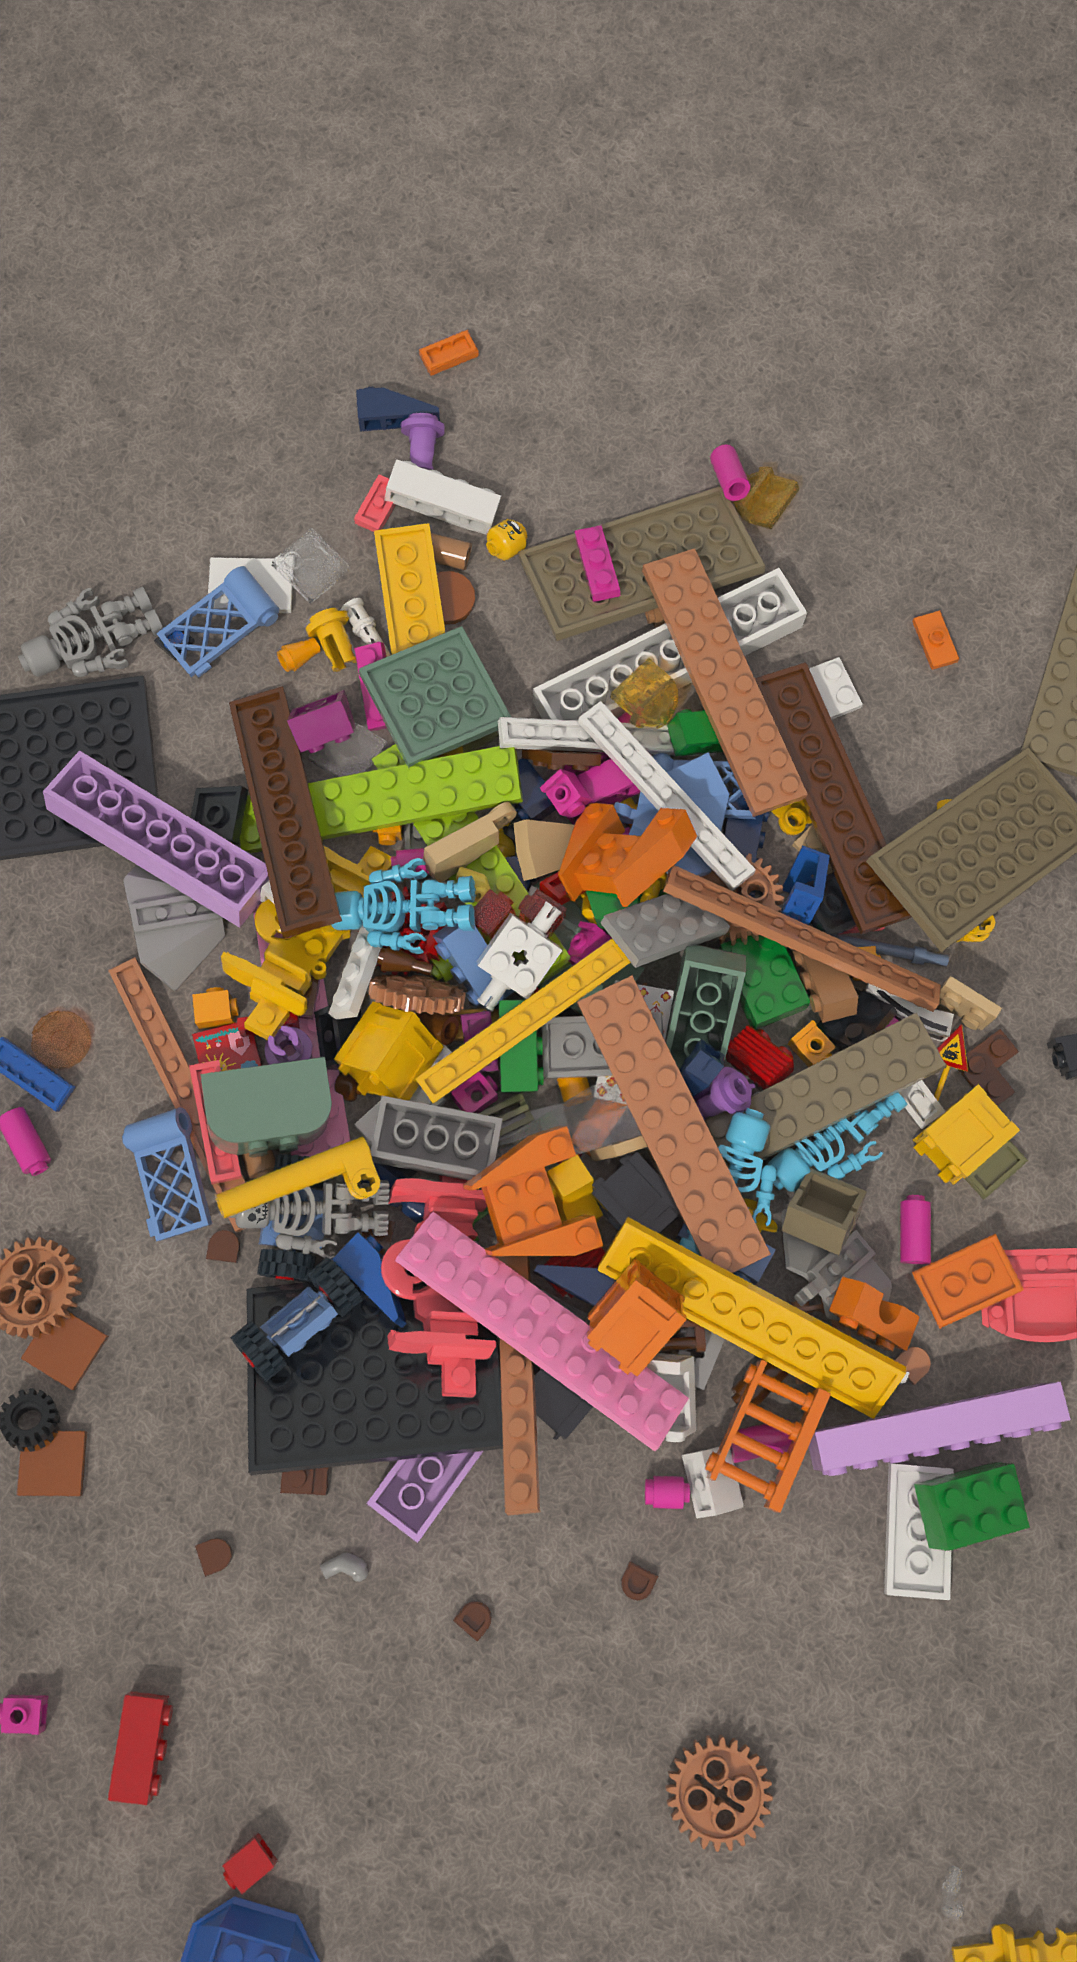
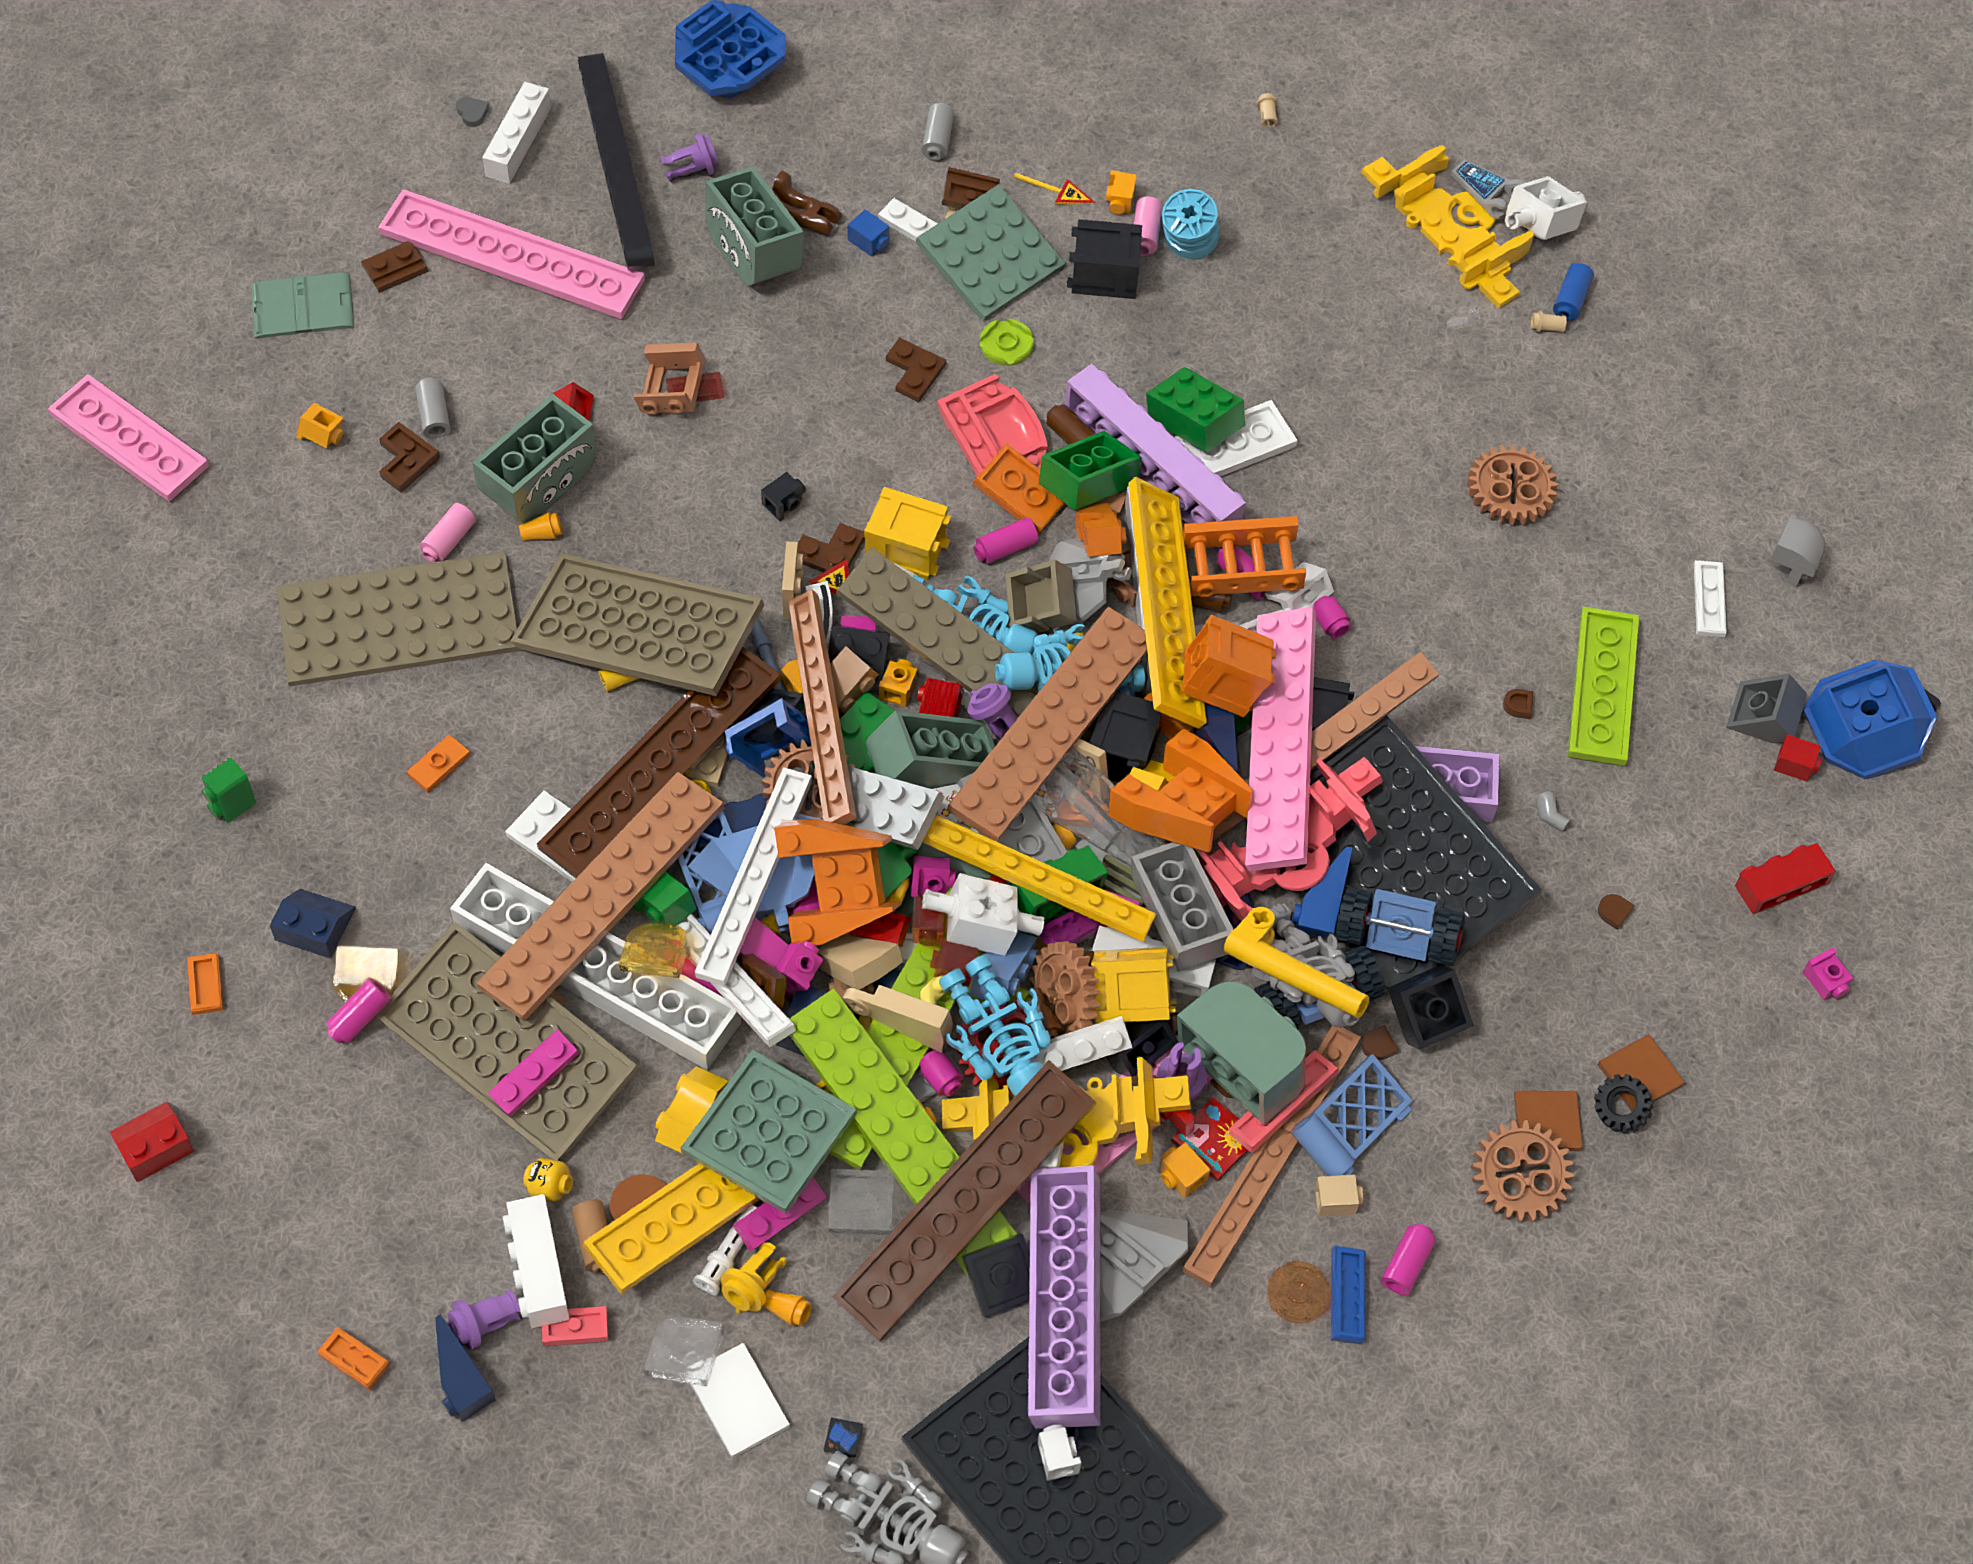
camera: 120 degrees left, 15 degrees down
(44, 766) = (1058, 1452): none -> white brick
(112, 1118) = (1337, 1195): none -> tan brick
(216, 1302) = (1430, 1006): none -> black brick
(247, 598) = (765, 1371): medium blue piece -> none
(319, 1874) = (1767, 708): none -> dark grey slope
(322, 722) = (849, 1230): magenta slope -> none
(443, 1720) = (1603, 686): none -> lime plate
(477, 1915) = (1709, 598): none -> white tile
(506, 671) = (694, 1098): none -> yellow brick
(637, 1582) = (1409, 607): reddish brown tile -> none
(701, 1067) = (985, 726): dark blue piece -> none
(706, 296) = (152, 1141): none -> red slope
(822, 389) = (205, 983): none -> orange tile
(834, 480) = (311, 922): none -> dark blue slope
(949, 1350) = (1089, 470): none -> green brick
(987, 464) = (228, 791): none -> green brick
(1011, 1373) = (1067, 424): none -> reddish brown brick

